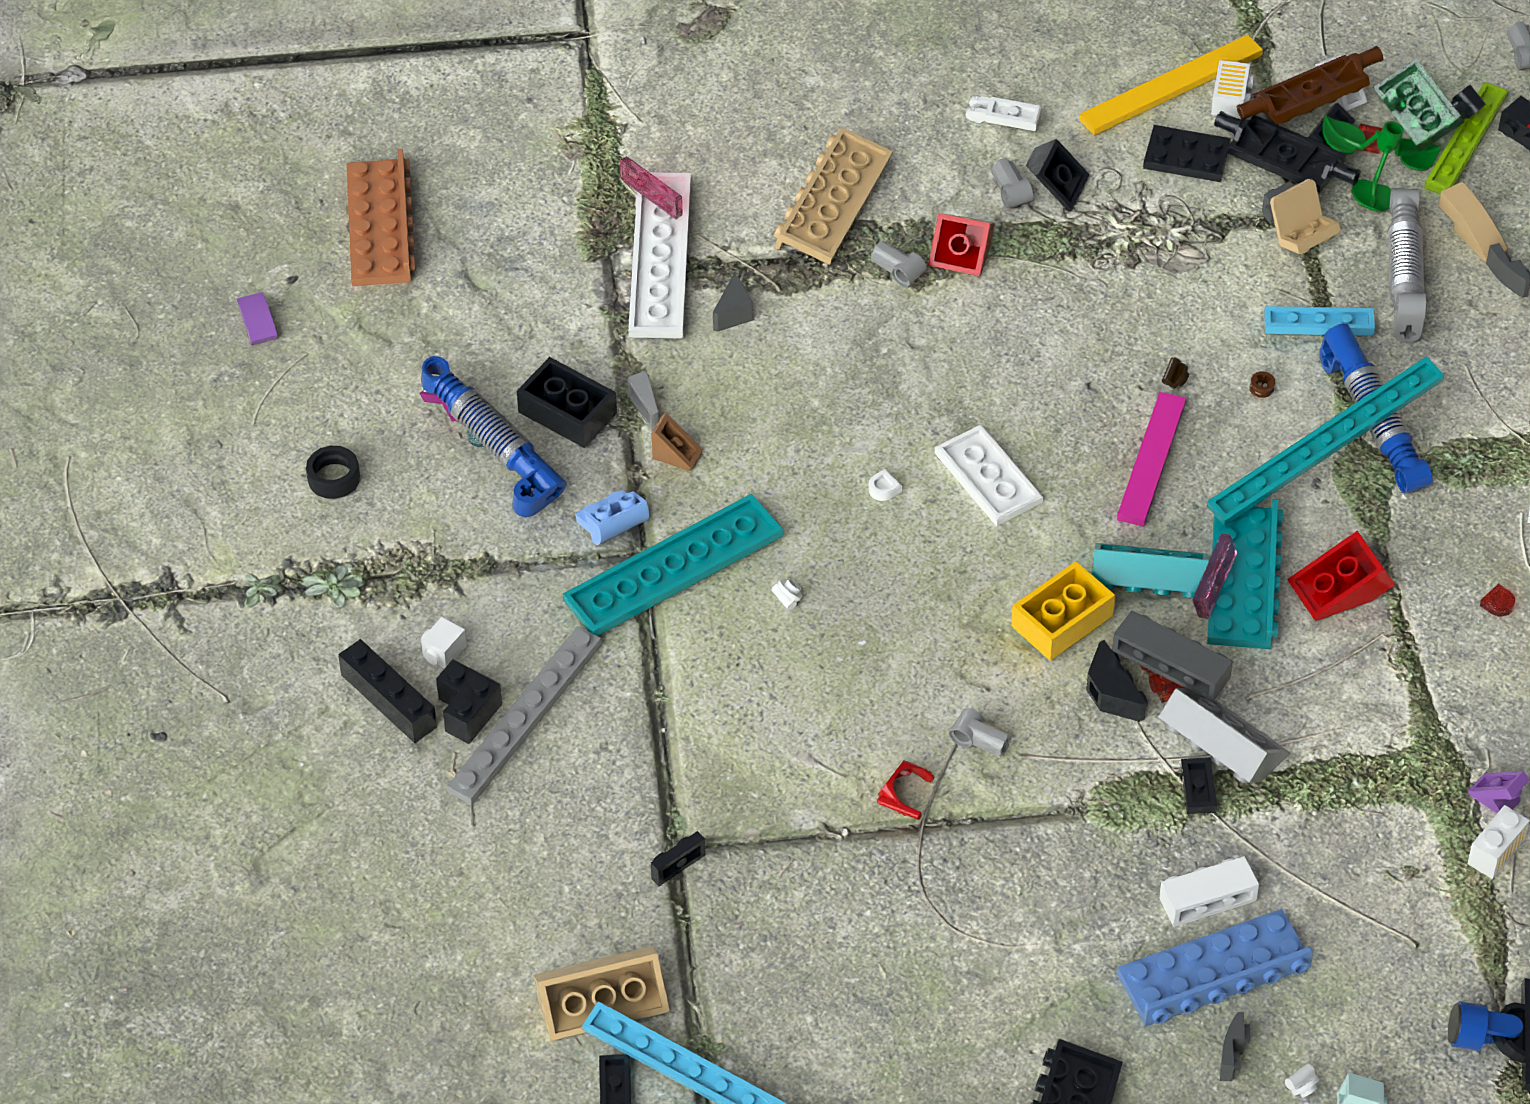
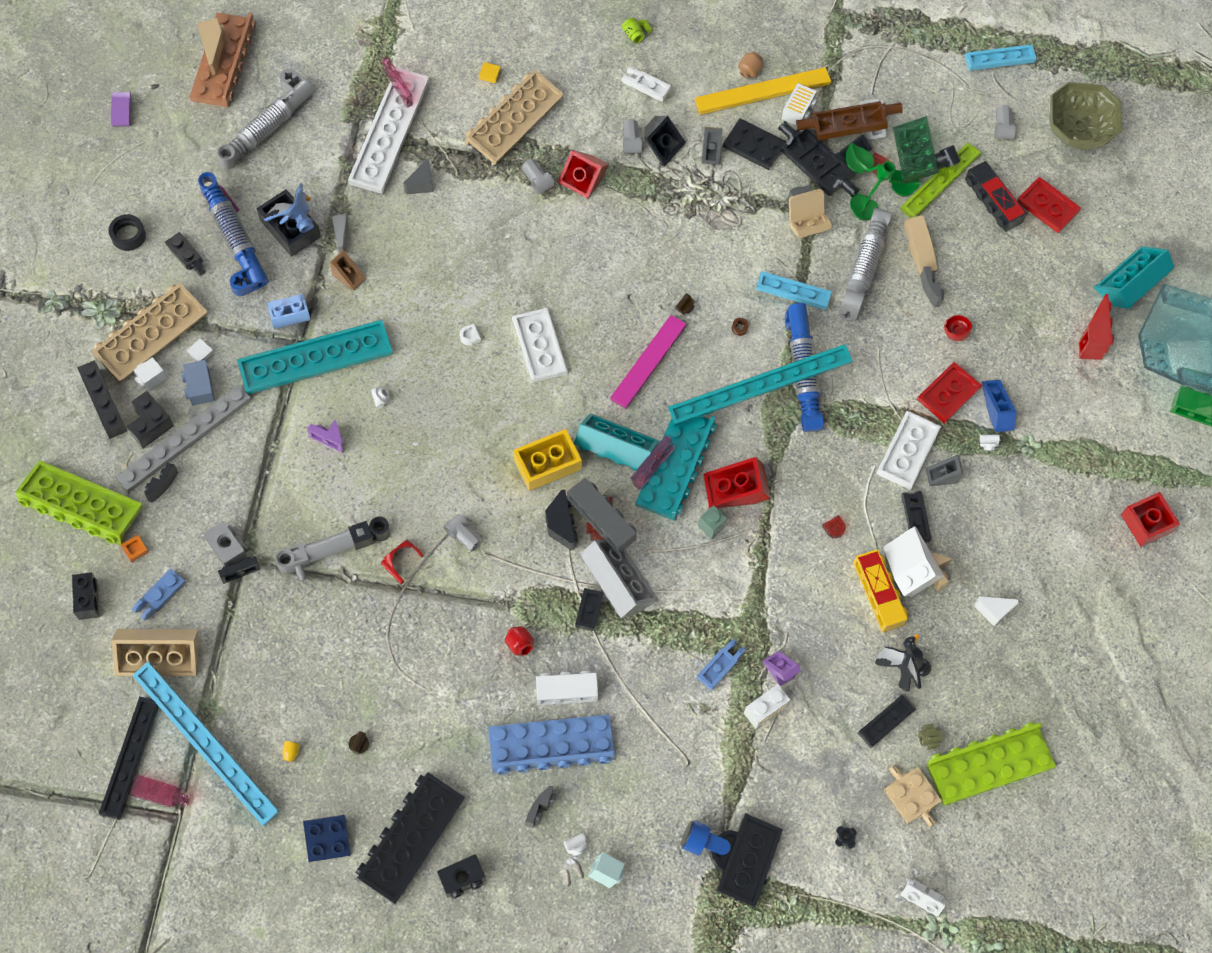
camera: 10 degrees right, 15 degrees up
(357, 194) = (213, 41): none -> tan slope
(406, 832) = (78, 502): none -> lime bracket
(420, 589) = (149, 332): none -> tan bracket
(429, 480) = (185, 253): none -> black hinge
(468, 946) = (85, 596): none -> black brick
(502, 599) = (200, 351): none -> white tile
(506, 235) = (265, 124): none -> light grey piece
(511, 872) = (134, 548): none -> orange tile
(516, 777) = (158, 486): none -> black slope
(518, 636) = (198, 382): none -> sand blue brick
(573, 919) = (159, 594): none -> medium blue hinge
(581, 376) = (296, 211): none -> medium blue animal
(629, 826) = (218, 536): none -> light grey brick
(741, 661) = (330, 438): none -> medium lavender slope
(774, 150) = (489, 72): none -> yellow tile
(831, 775) = (356, 537): none -> light grey piece
(847, 1068) = (290, 751): none -> yellow hose
(941, 1035) = (359, 743): none -> dark brown plate
(961, 48) = (634, 31): none -> lime piece
(1117, 848) = (519, 641): none -> red head
(1130, 166) = (711, 145): none -> dark grey slope
(1142, 54) = (750, 65): none -> medium nougat head
(1327, 633) = (712, 521): none -> sand green brick
(1411, 810) = (720, 665): none -> medium blue hinge

